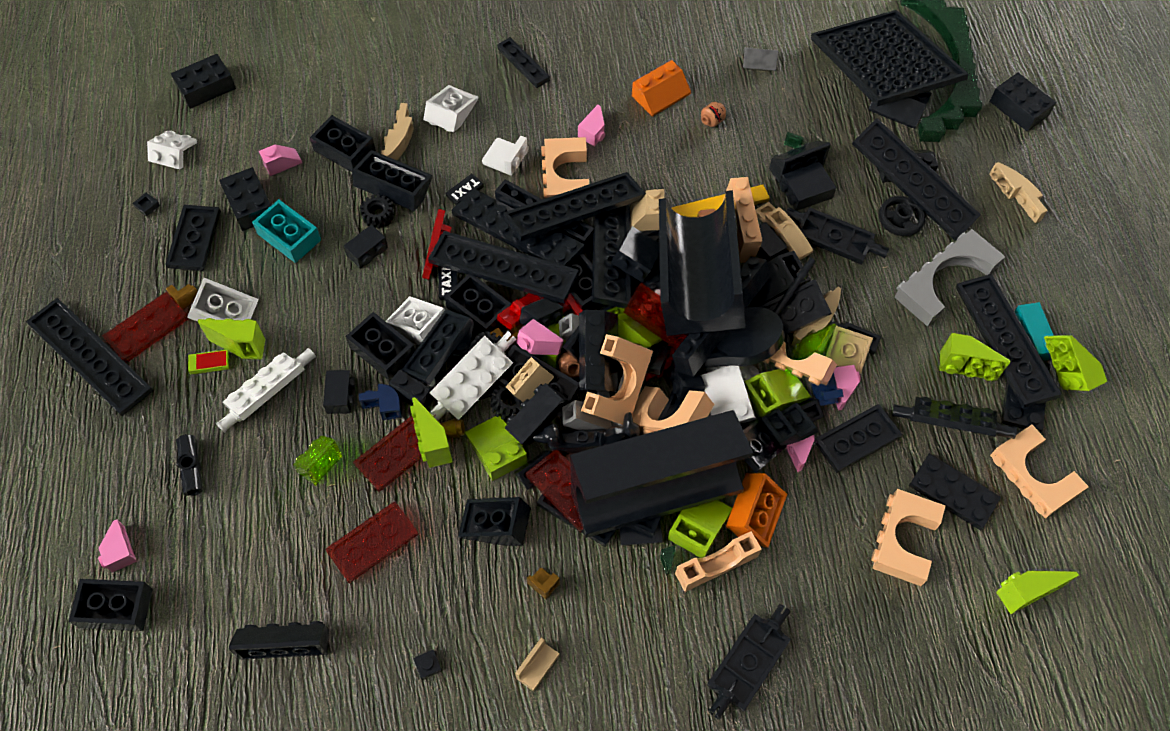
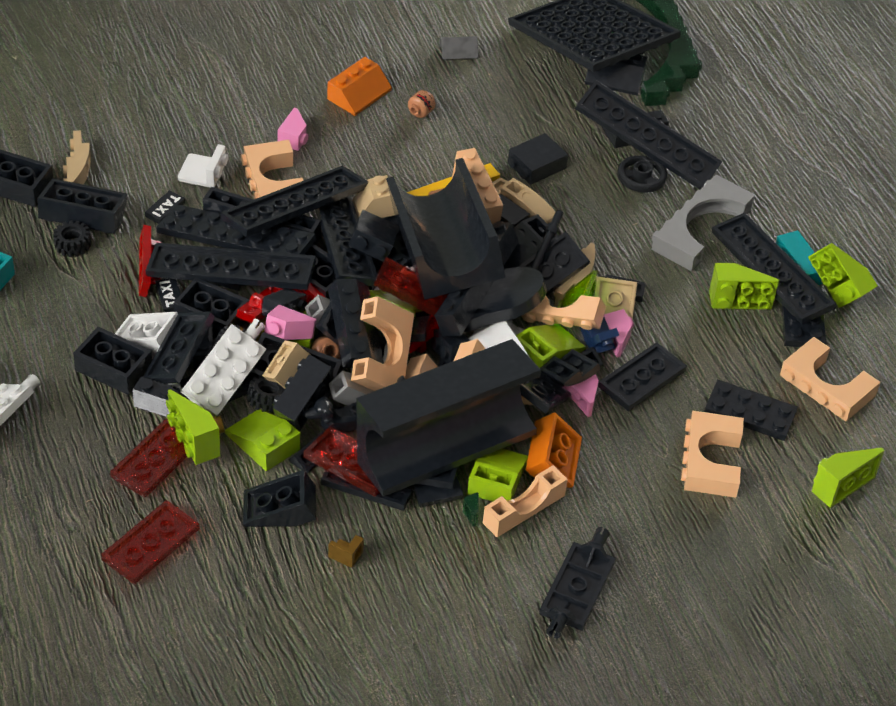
camera: 15 degrees left, 15 degrees down
(280, 641) = (77, 644): black slope -> none
(318, 459) = (71, 473): clear neon green slope -> none
(338, 392) = (76, 411): black brick -> none
(365, 246) = (68, 272): black brick -> none
(385, 398) = (130, 409): dark blue brick -> none
(427, 664) = (240, 642): black plate -> none
(449, 108) = (128, 132): white slope -> none
(523, 62) = (199, 79): black plate -> none
(536, 665) = (357, 623): tan panel -> none
(793, 140) = (513, 119): clear green slope -> none
(799, 158) = (522, 132): black slope -> none
(836, 235) = (580, 199): black plate -> none
(955, 416) = (743, 339): black plate -> none
(1017, 186) = (755, 133): tan slope -> none
(1022, 101) = (742, 56): black brick -> none

